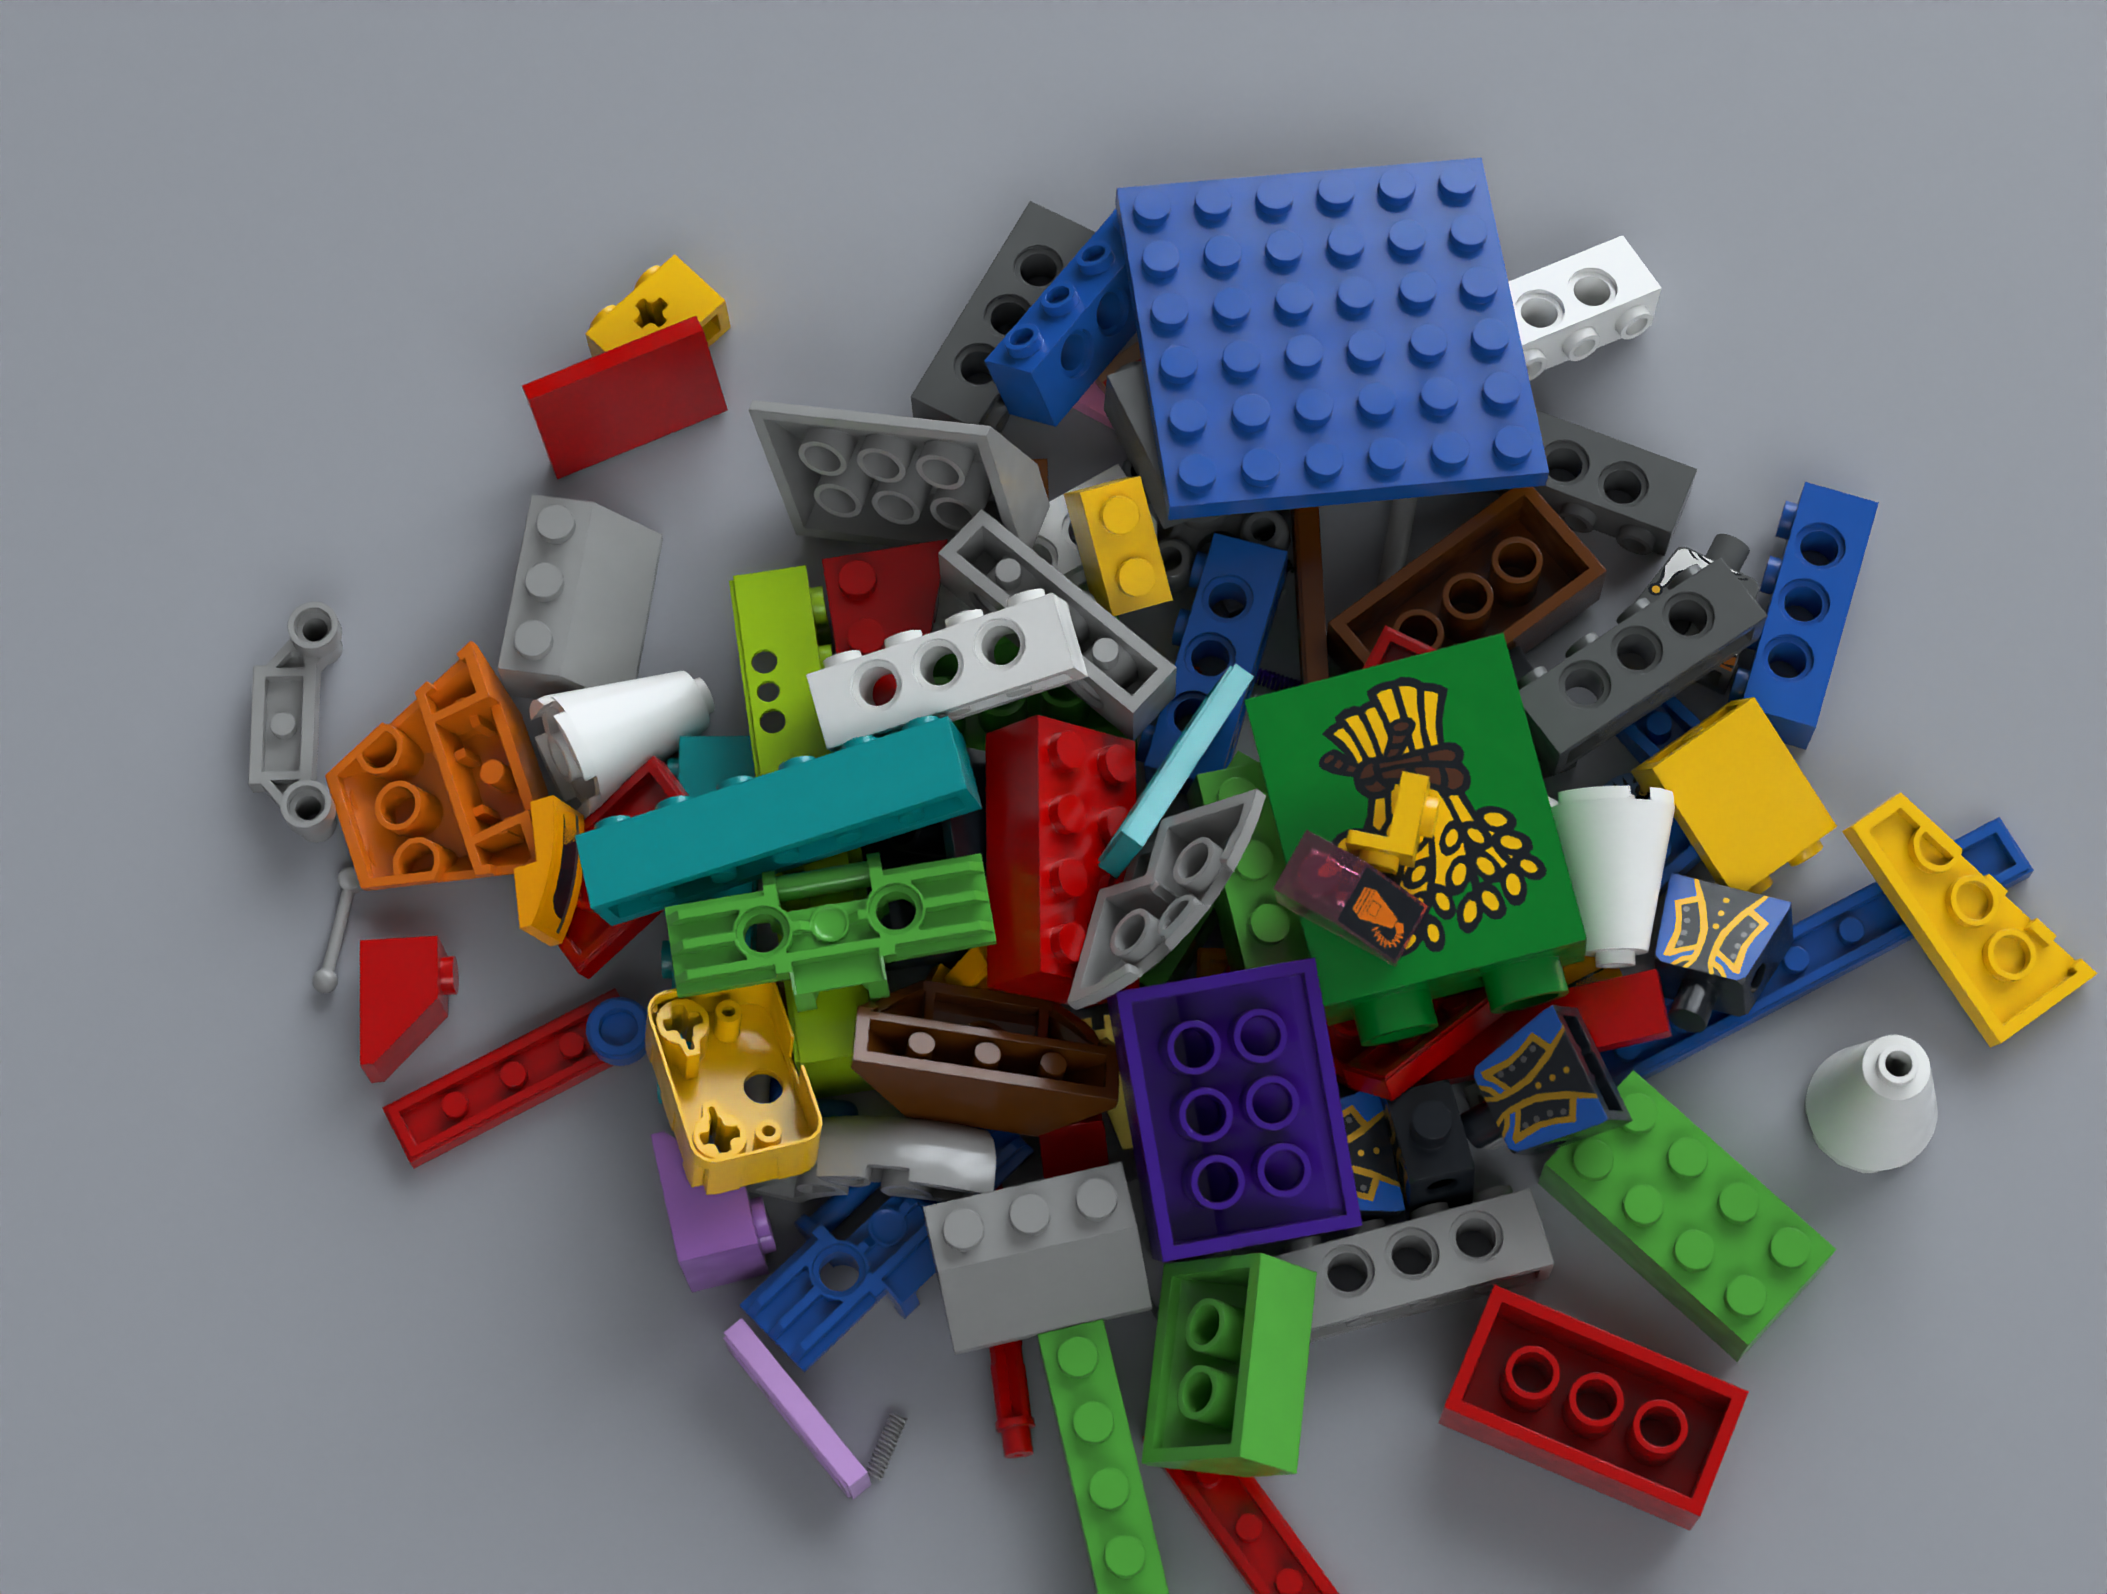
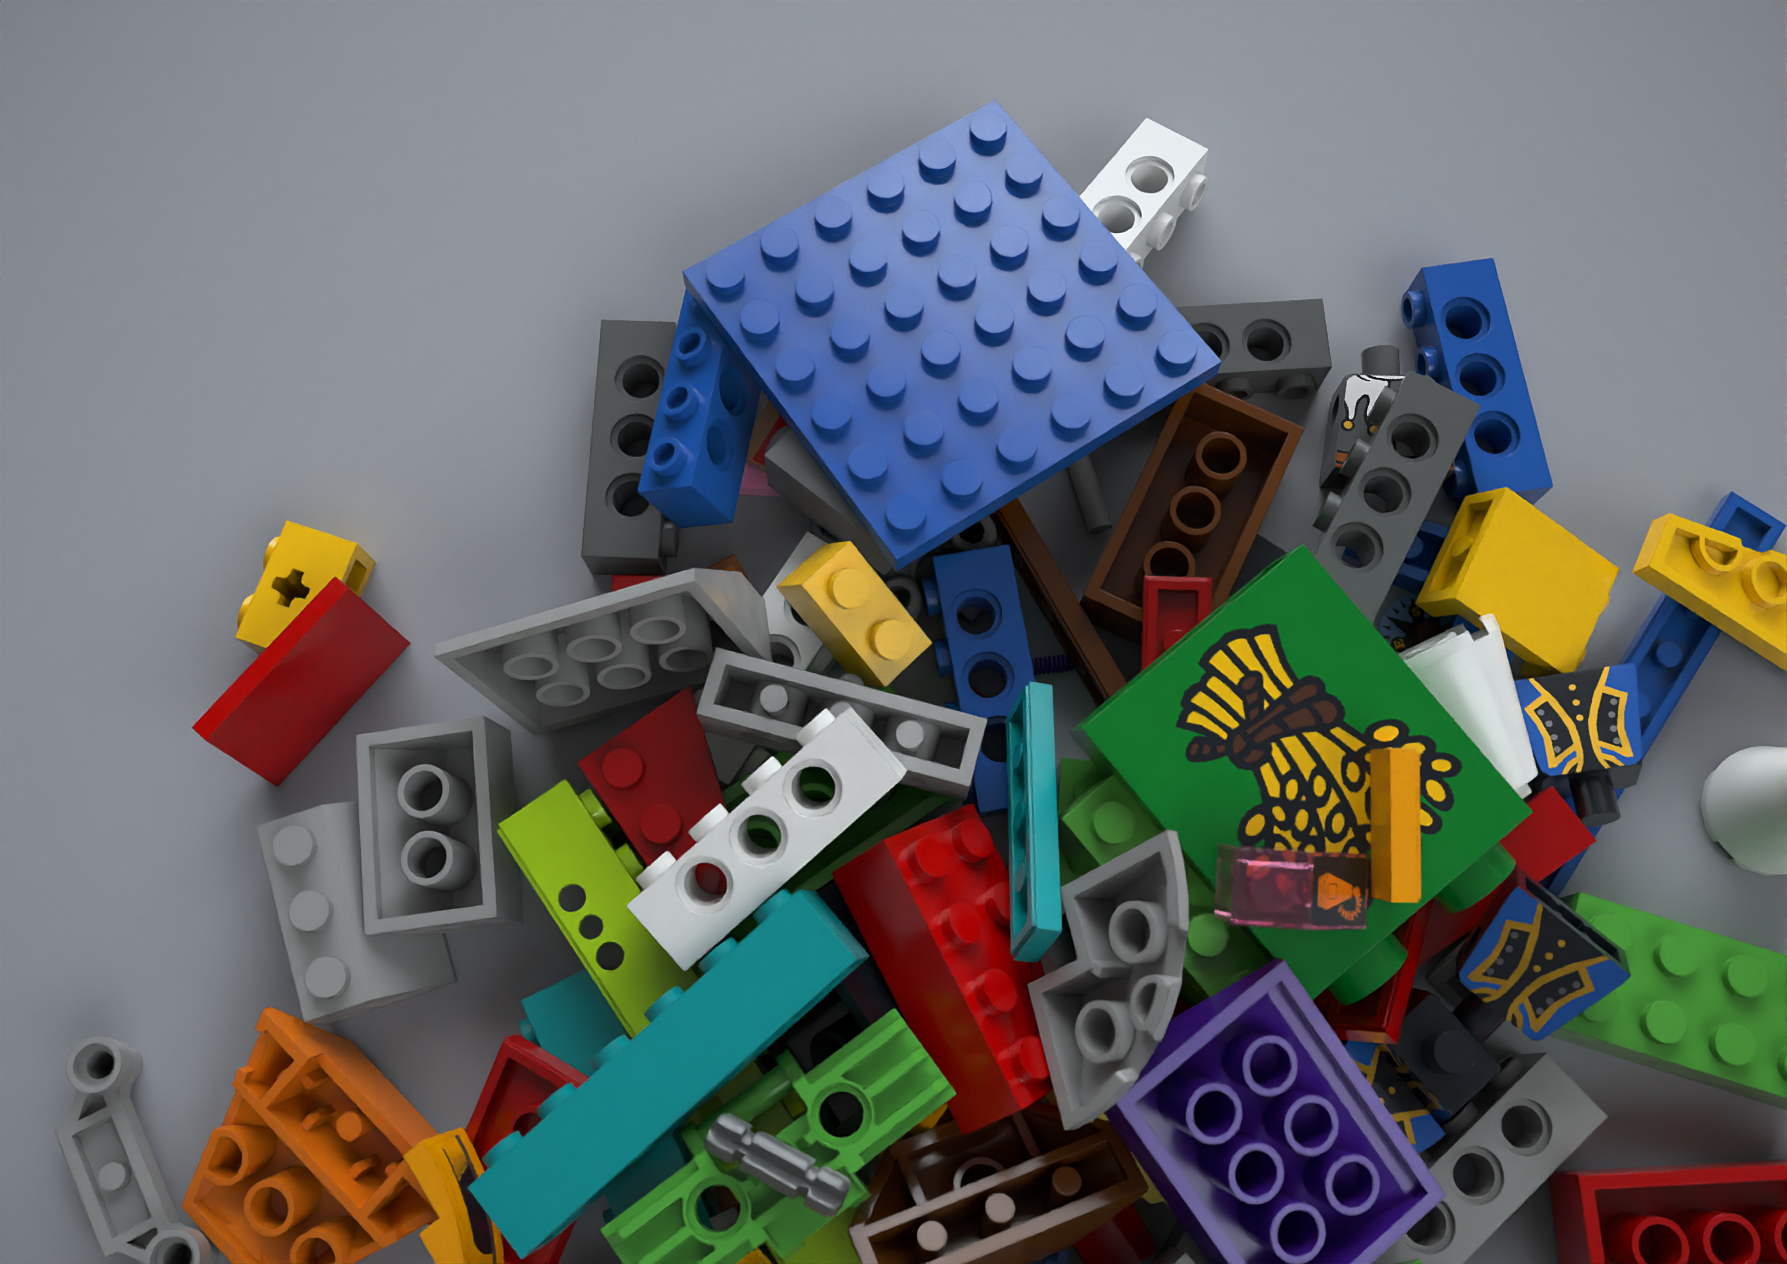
camera: 30 degrees left, 5 degrees up
(611, 730) = (454, 1022): white cone -> none
(672, 564) = (432, 826): none -> light grey slope
(826, 916) = (777, 1165): none -> dark grey axle
(1413, 817) = (1317, 777): yellow bracket -> none
(1456, 885) = (1395, 825): none -> light orange tile

